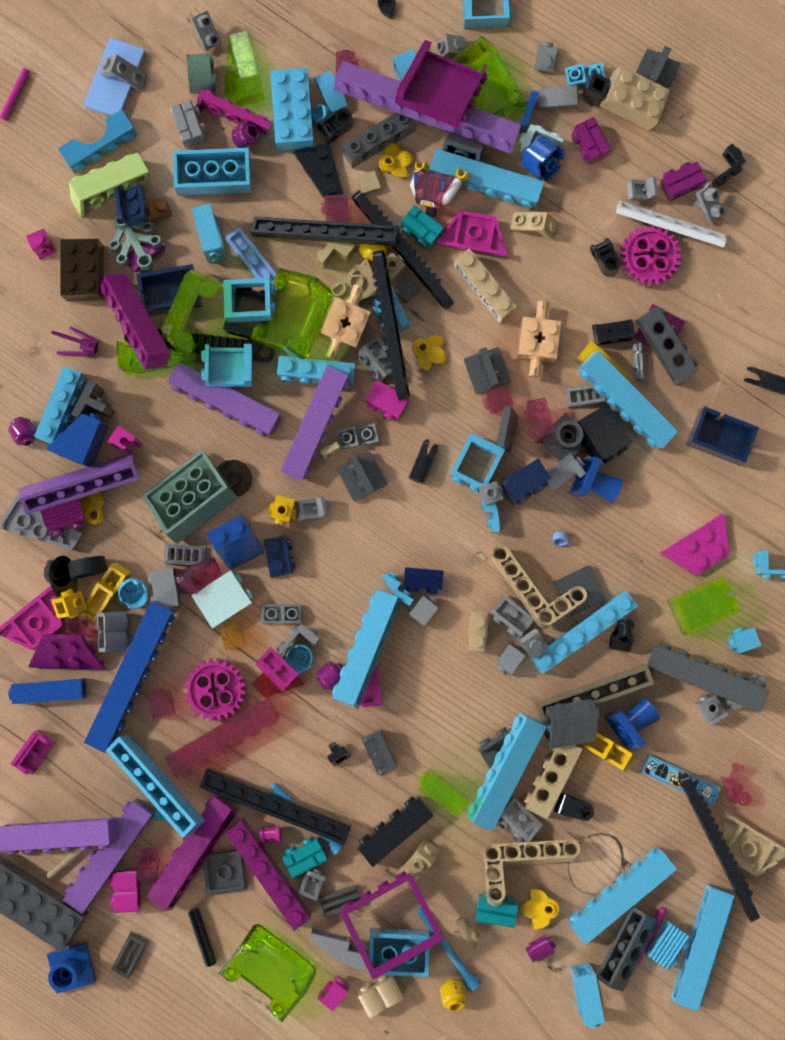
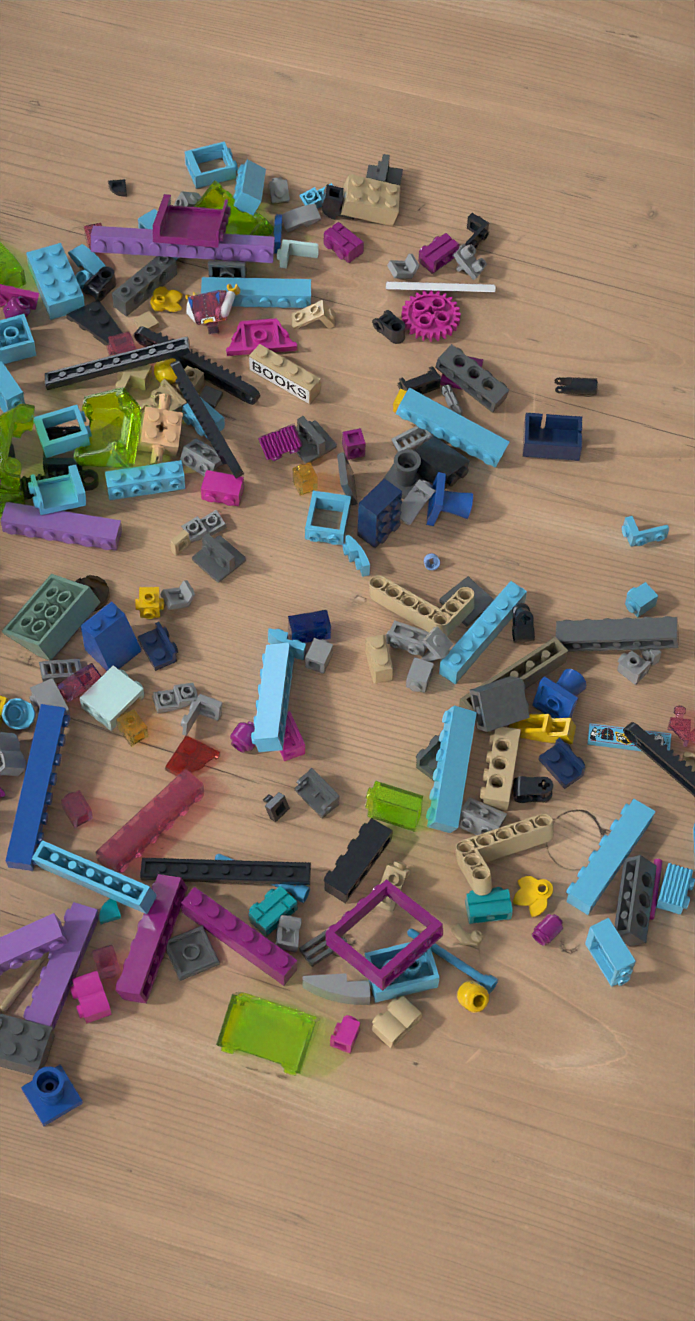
camera: 20 degrees left, 25 degrees down
(137, 939) = (109, 1082): dark grey tile -> none
(202, 937) = (186, 1022): black axle -> none
(232, 686) = (110, 788): dark pink gear -> none
(250, 256) = (46, 403): light blue tile -> none
(270, 835) = (230, 900): dark pink bush -> none
(276, 669) = (187, 739): dark pink hinge -> none
(299, 657) = (206, 728): medium azure hair -> none
(314, 423) = (158, 516): medium lavender brick -> none
(421, 227) = (209, 343): teal brick -> none
(423, 463) = (275, 532): black piece -> none
(431, 353) = (250, 441): yellow plate -> none
(456, 367) = (280, 442): none -> magenta brick
(468, 412) = (305, 478): none -> clear yellow brick
(491, 493) = (350, 534): light grey bracket -> none
(497, 400) = (326, 462): clear pink brick -> none
(515, 51) = (249, 187): none -> medium azure brick
(526, 388) = (353, 443): none -> magenta brick
(528, 345) = (350, 403): light nougat brick -> none
(539, 418) = (373, 463): clear pink bracket -> none
(542, 158) = (303, 261): blue brick -> none
(610, 788) = (563, 763): none -> dark blue bracket
(701, 548) = (569, 536): dark pink wing -> none
(703, 605) = (589, 578): clear neon green piece -> none

